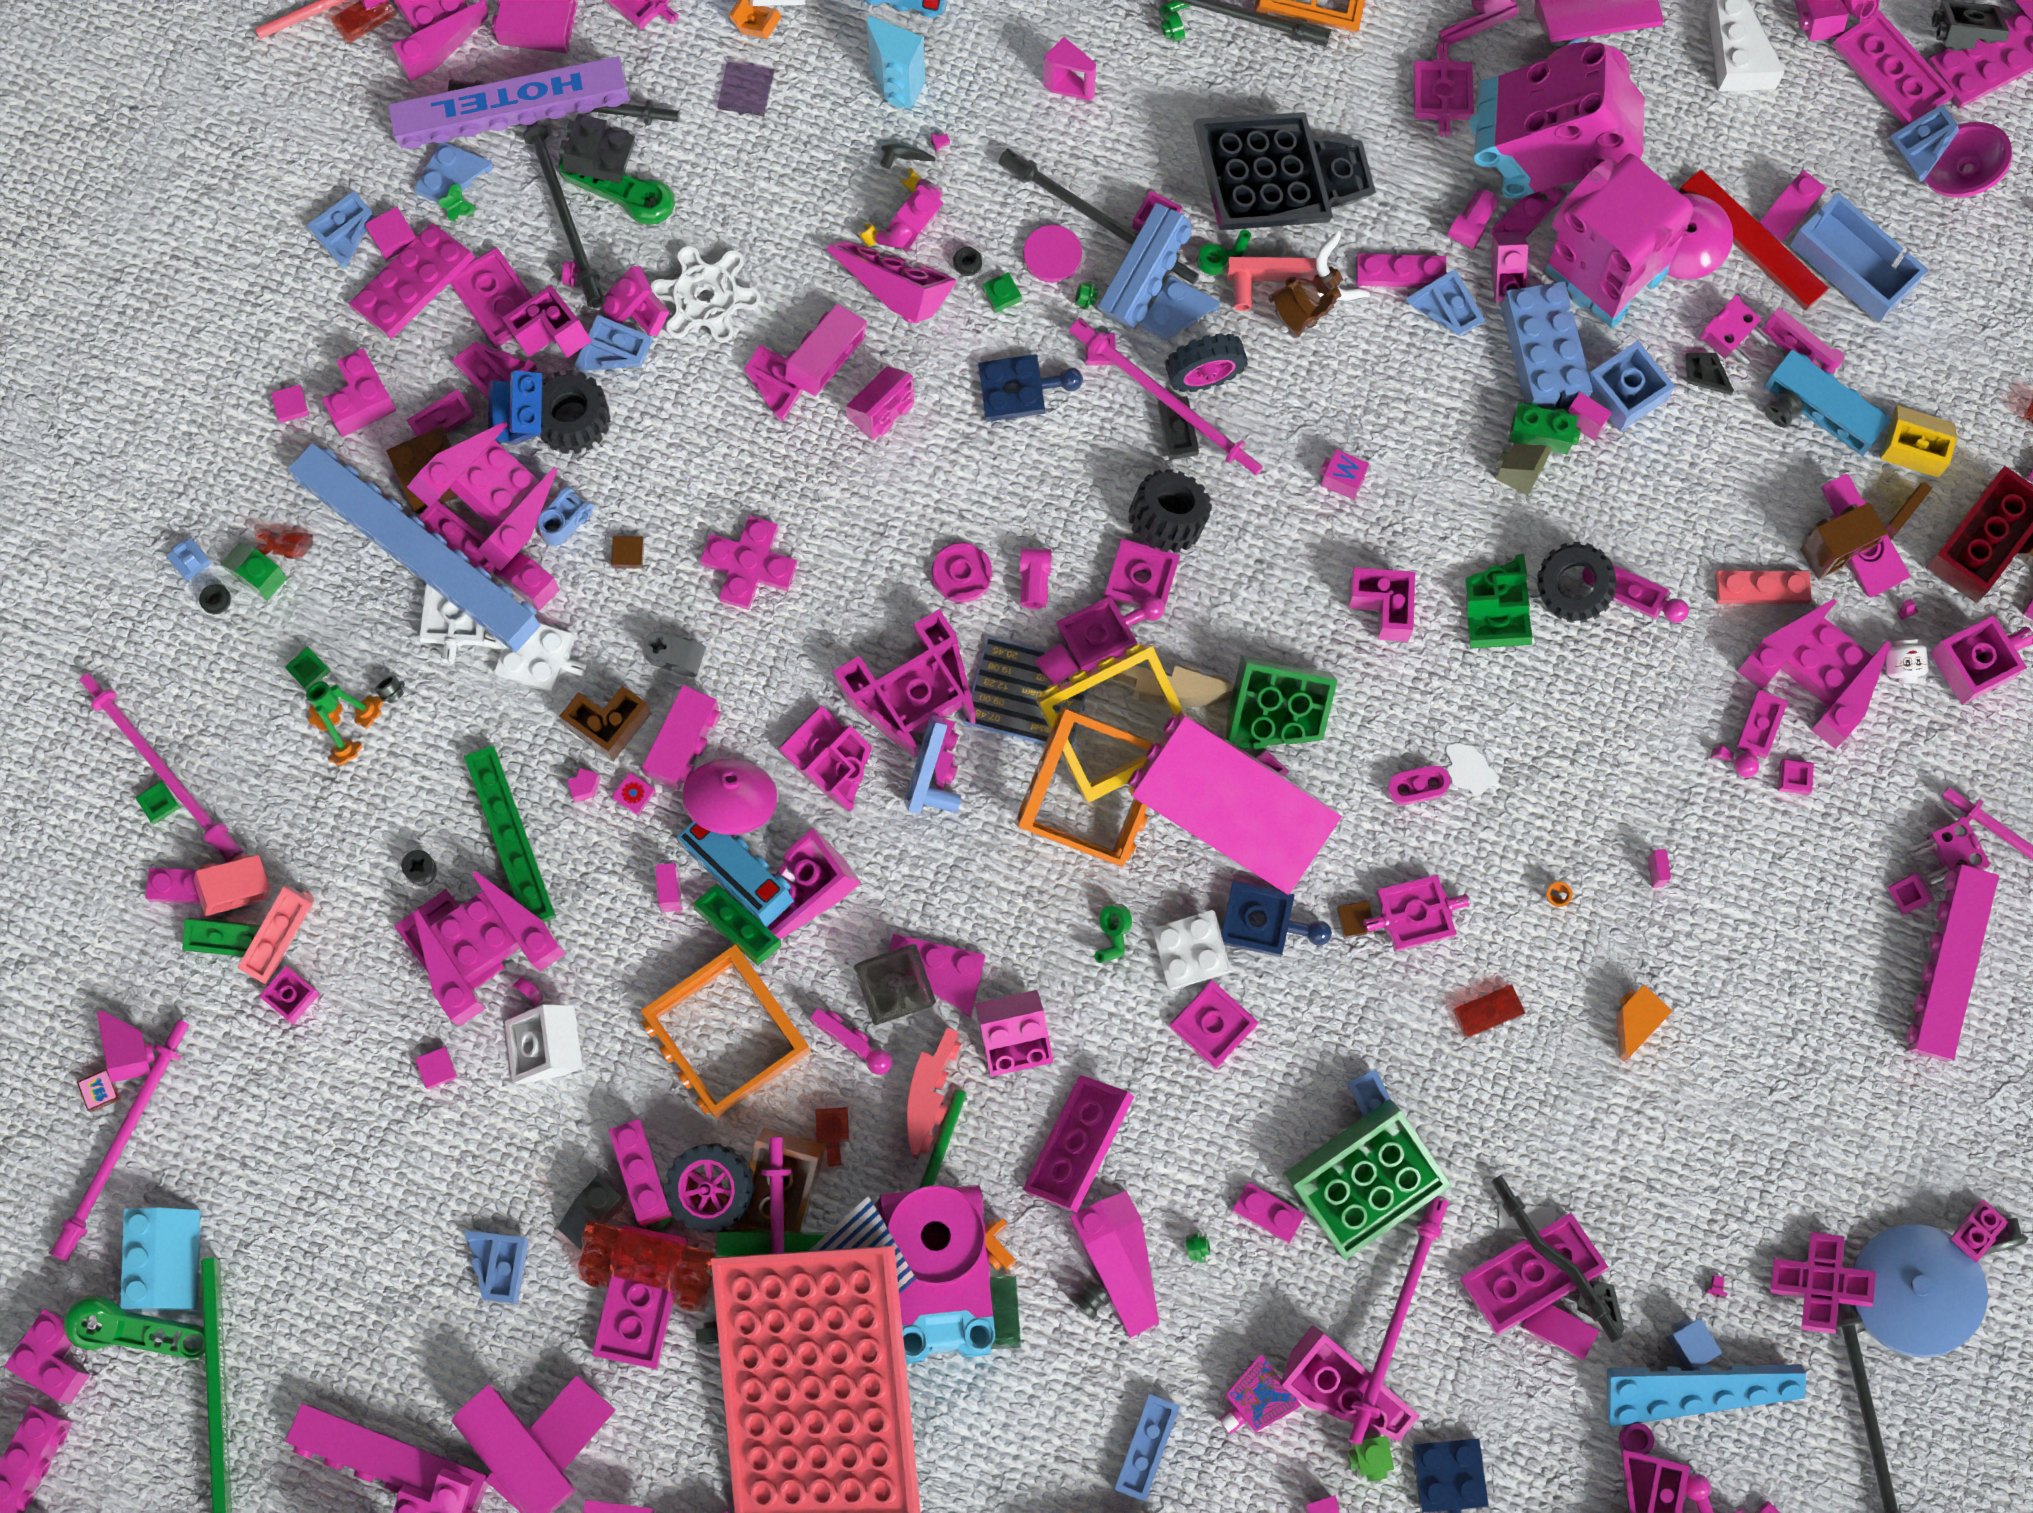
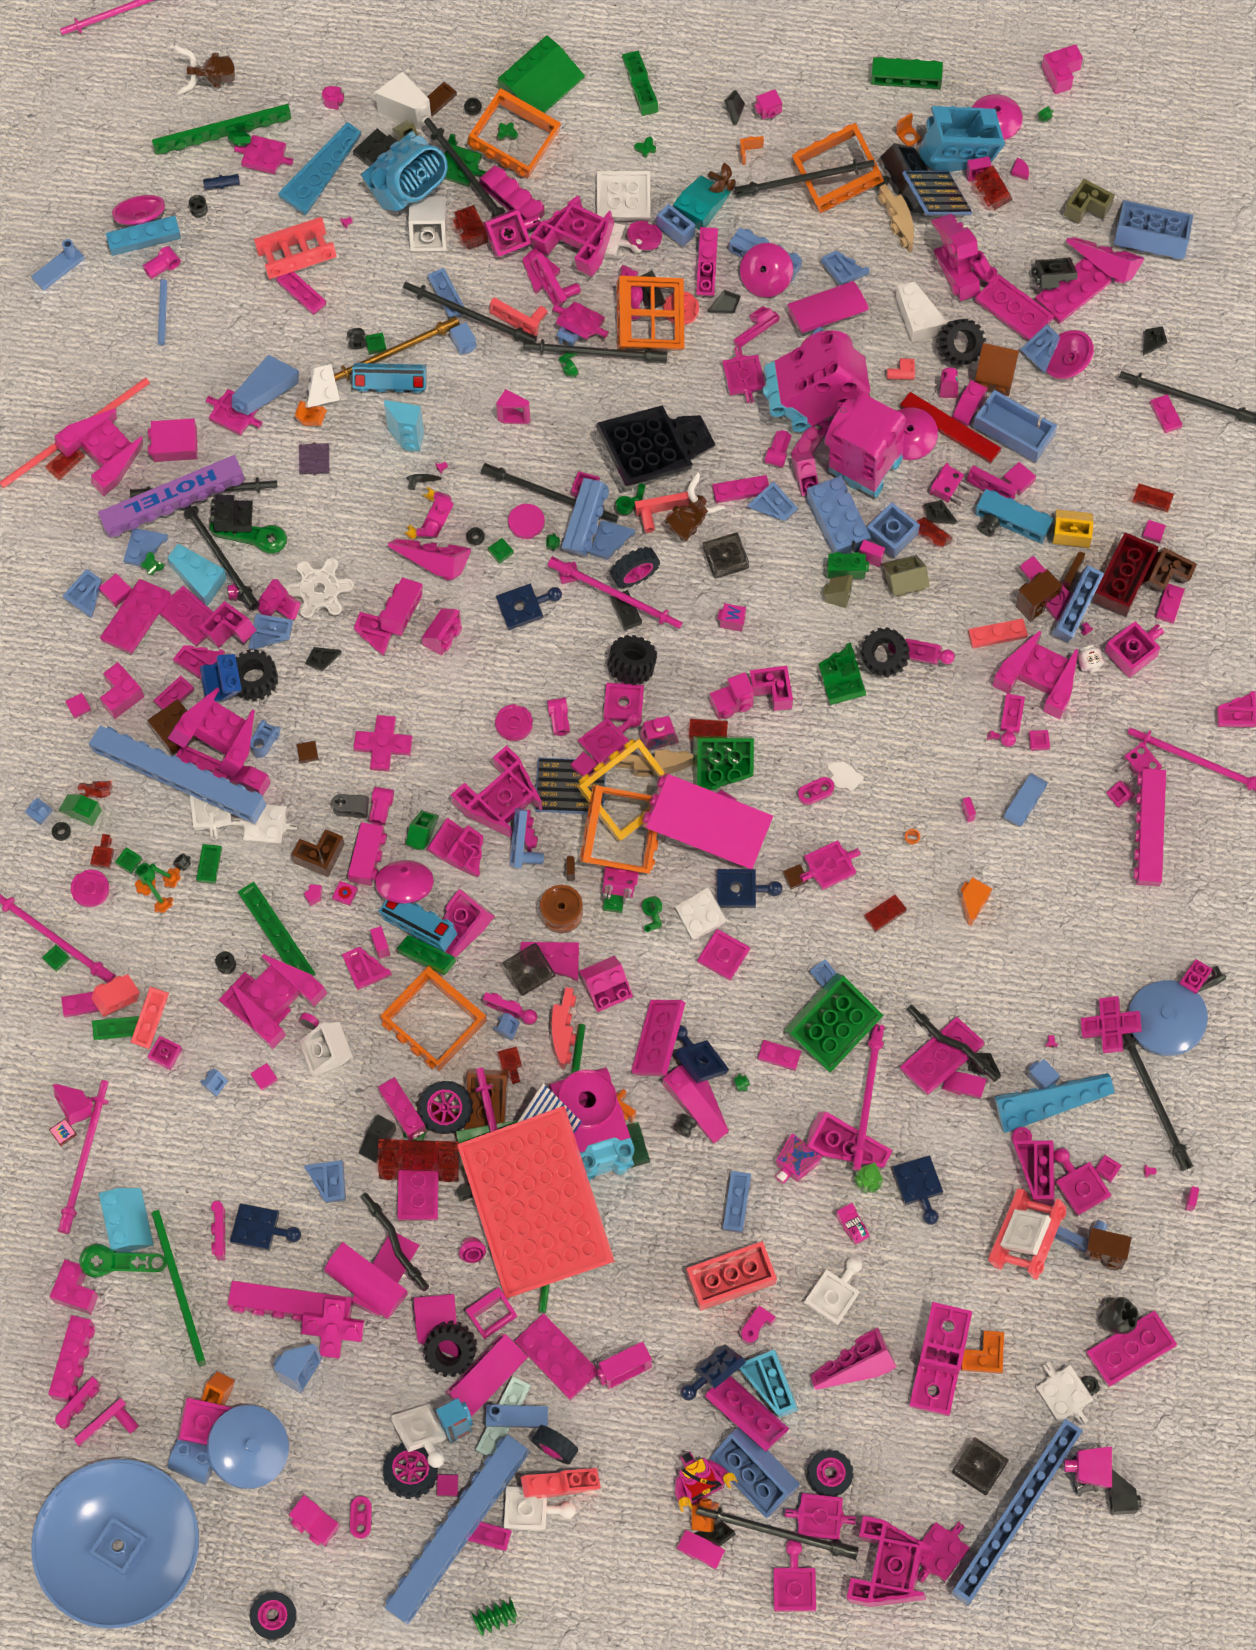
camera: 10 degrees left, 5 degrees down
(238, 700) = (90, 888): none -> dark pink tile
(269, 651) = (103, 854): none -> clear red plate
(303, 1311) = (218, 1230): none -> dark pink plate
(354, 1061) = (214, 1082): none -> medium blue tile
(367, 1316) = (257, 1227): none -> dark blue plate
(431, 700) = (209, 863): none -> green plate
(524, 233) = (197, 572): none -> medium azure wedge
(593, 1459) = (413, 1272): none -> pearl dark grey bar
(635, 923) = (364, 968): none -> dark pink wing
(684, 406) = (322, 657): none -> pearl dark grey piece
(699, 1435) = (472, 1250): none -> dark pink cone
(725, 654) = (382, 799): none -> dark pink piece
(777, 716) = (421, 830): none -> green slope
(840, 1070) = (507, 1026): none -> medium blue tile
(971, 876) = (561, 909): none -> dark orange wheel
(999, 830) = (570, 868): none -> reddish brown tile
(1056, 898) = (614, 904): none -> green plate
(1071, 872) = (619, 882): none -> dark pink piece
(1144, 1181) = (694, 1053): none -> dark blue plate
(1185, 639) = (658, 733): none -> dark pink torso
(1266, 646) = (703, 727): none -> clear red plate
(1317, 606) = (734, 698): none -> dark pink brick
(1367, 360) = (732, 547): none -> clear smoke brick
(1635, 463) = (906, 575): none -> olive slope
(1699, 409) = (937, 535): none -> clear red plate
(1700, 135) = (905, 372): none -> coral piece
(1755, 872) = (1025, 800): none -> medium blue beam
(1766, 168) = (949, 383): none -> dark pink leg
(1821, 105) = (947, 346): none -> black tyre
(1849, 158) = (996, 368): none -> dark orange slope
(1851, 340) = (1020, 476): none -> dark pink piece
(1904, 566) = (1077, 603): none -> medium blue brick

